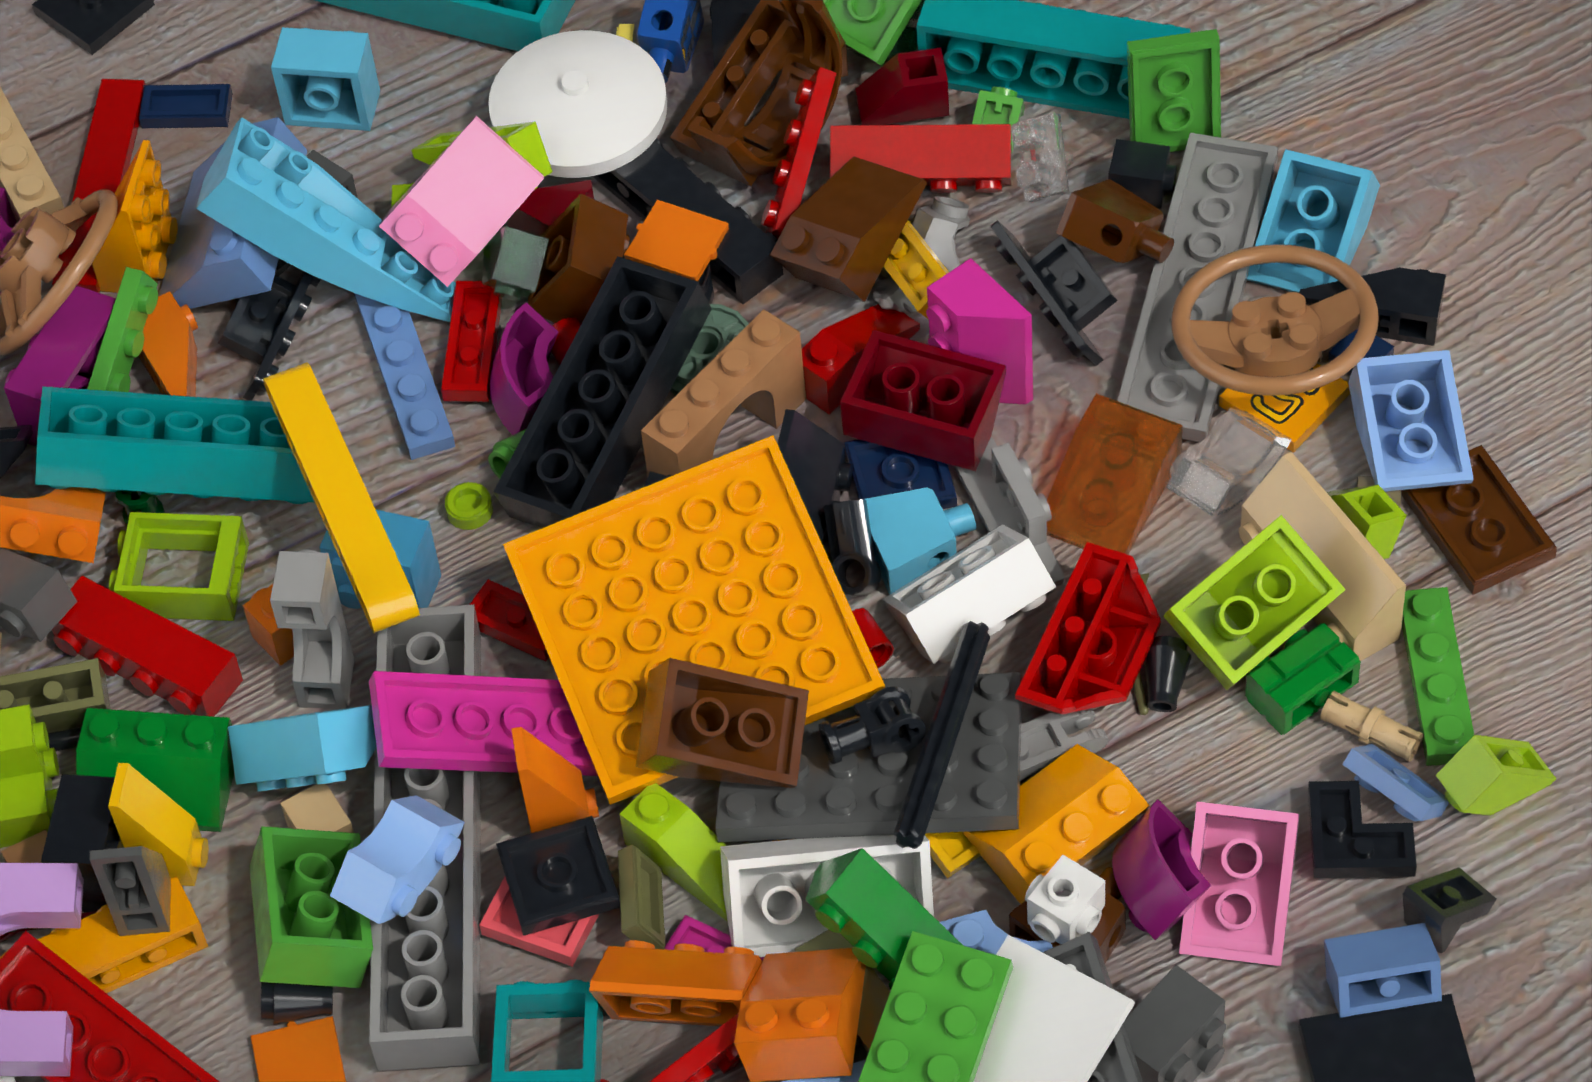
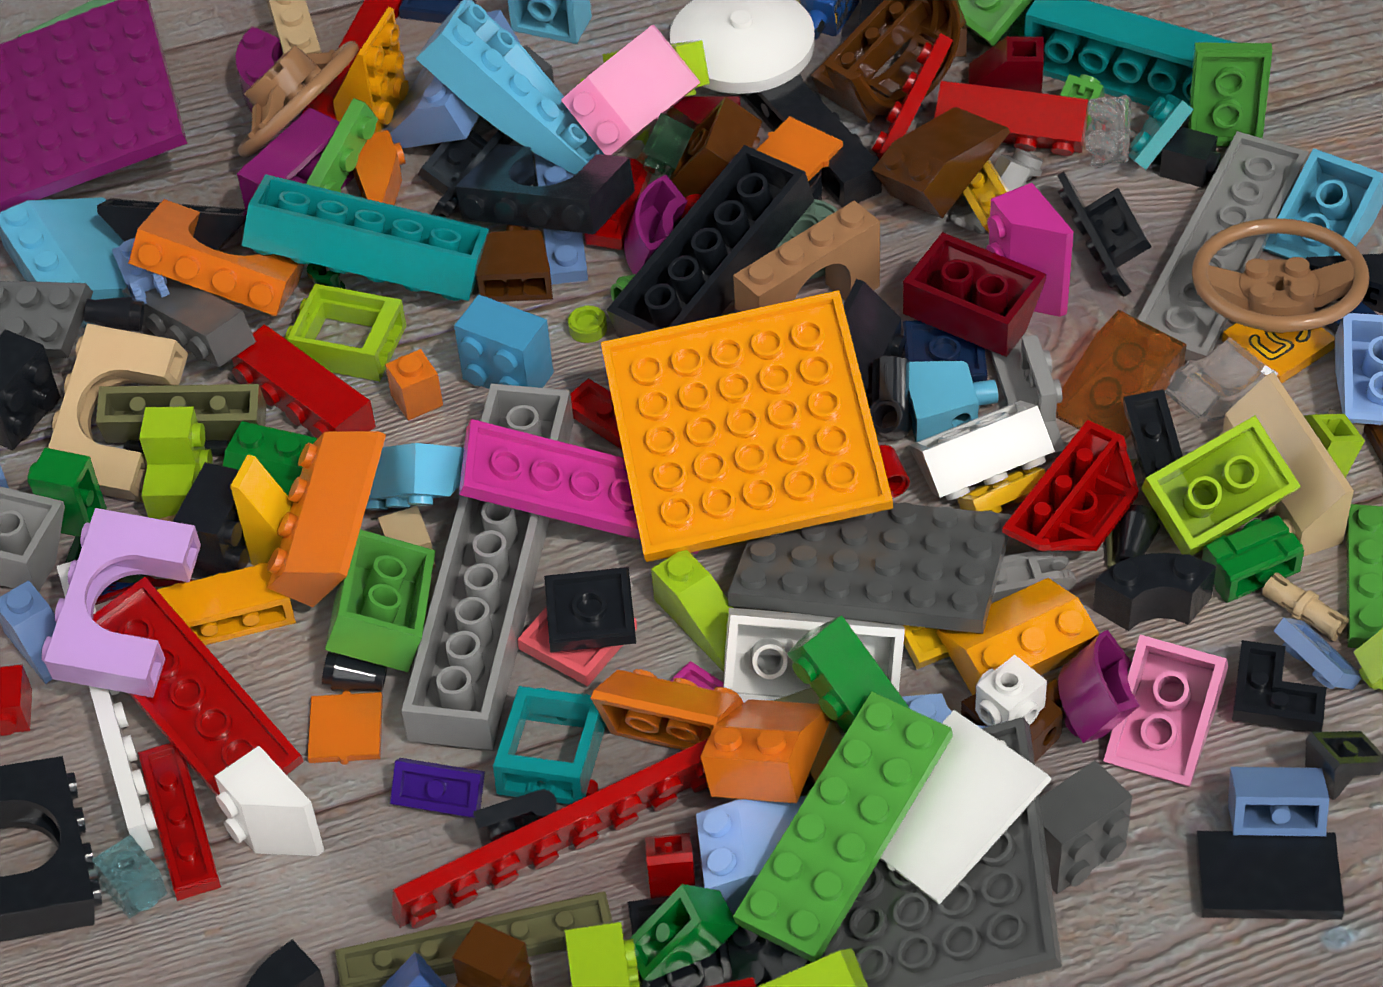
camera: 10 degrees right, 5 degrees down
(134, 888) = (238, 554): dark grey slope -> none
(223, 815) = (324, 514): none -> orange slope
(309, 604) = (430, 354): light grey arch -> none
(341, 498) = (479, 290): yellow beam -> none
(375, 439) = (515, 266): none -> reddish brown torso
(398, 859) = (457, 569): light blue brick -> none
(422, 362) = (503, 192): none -> black arch
(550, 784) = (597, 535): orange slope -> none
(641, 897) = (655, 638): olive tile -> none
(721, 726) = (748, 509): reddish brown slope -> none
(836, 350) = (906, 248): red slope -> none
(874, 727) = (877, 532): black connector -> none
(942, 736) = (932, 549): black axle -> none
(1019, 634) = (992, 496): none -> yellow plate
(1099, 143) = (1165, 119): none -> teal plate
(1114, 223) = (1160, 187): reddish brown torso -> none
(1164, 545) = (1152, 431): none -> black plate
(1199, 734) = (1154, 588): none -> black brick

